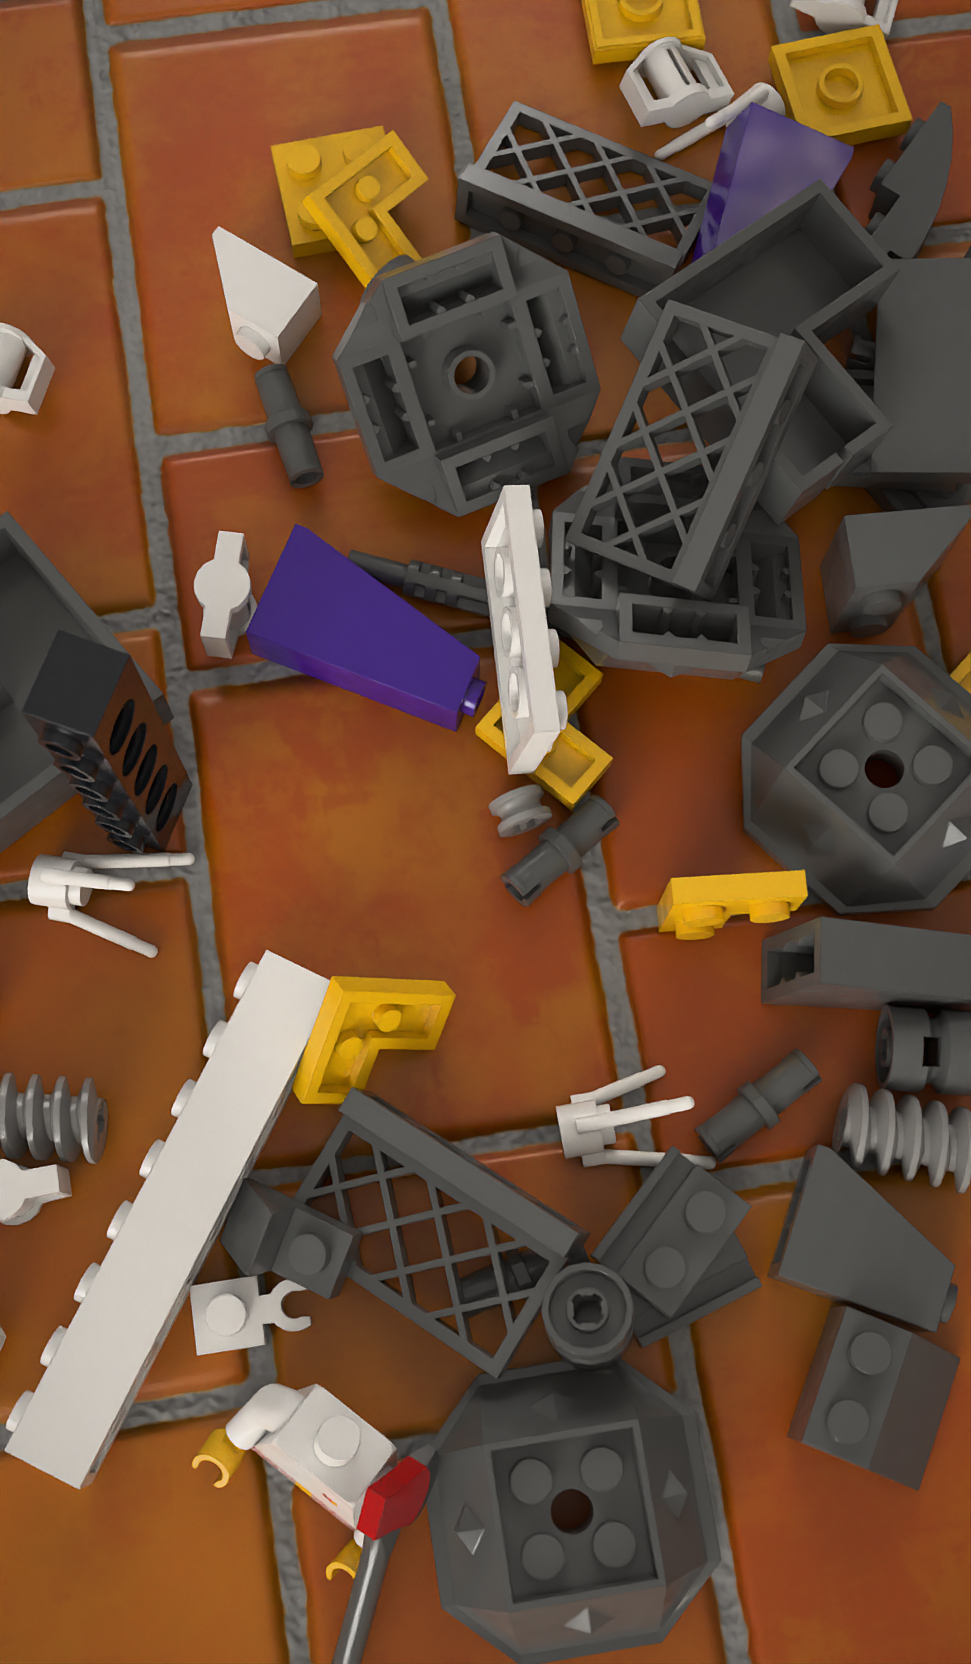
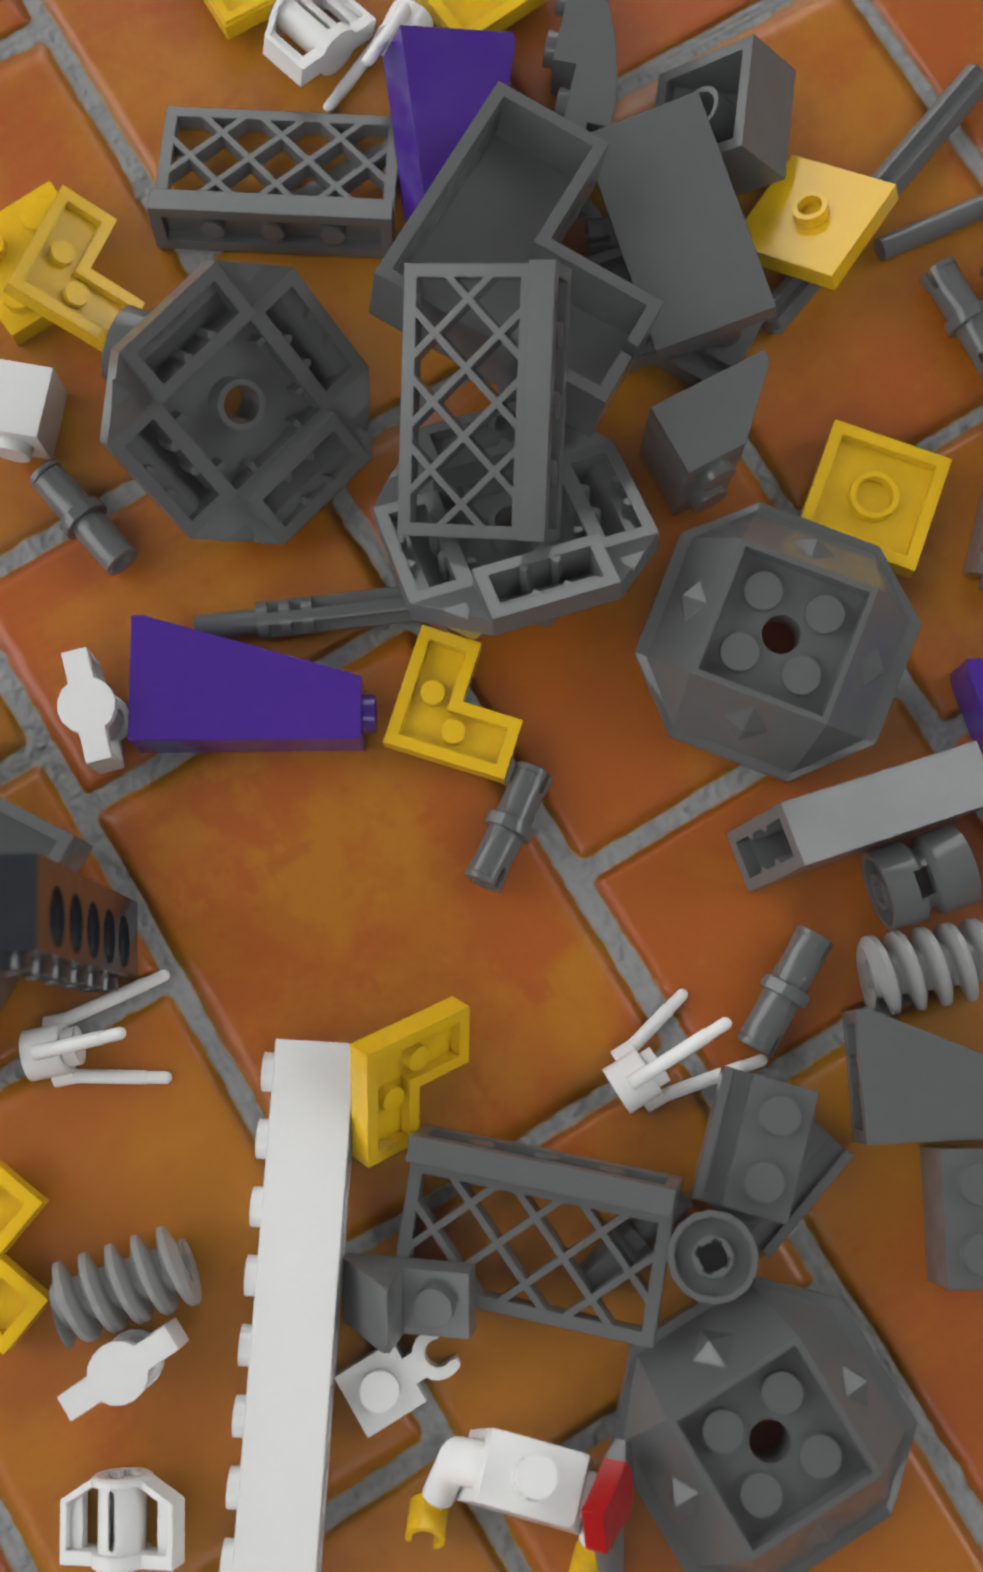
camera: 20 degrees left, 5 degrees up
(520, 810) = (456, 804): light grey bush -> none
(521, 639) = (398, 652): white plate -> none
(705, 903) = (667, 828): yellow plate -> none

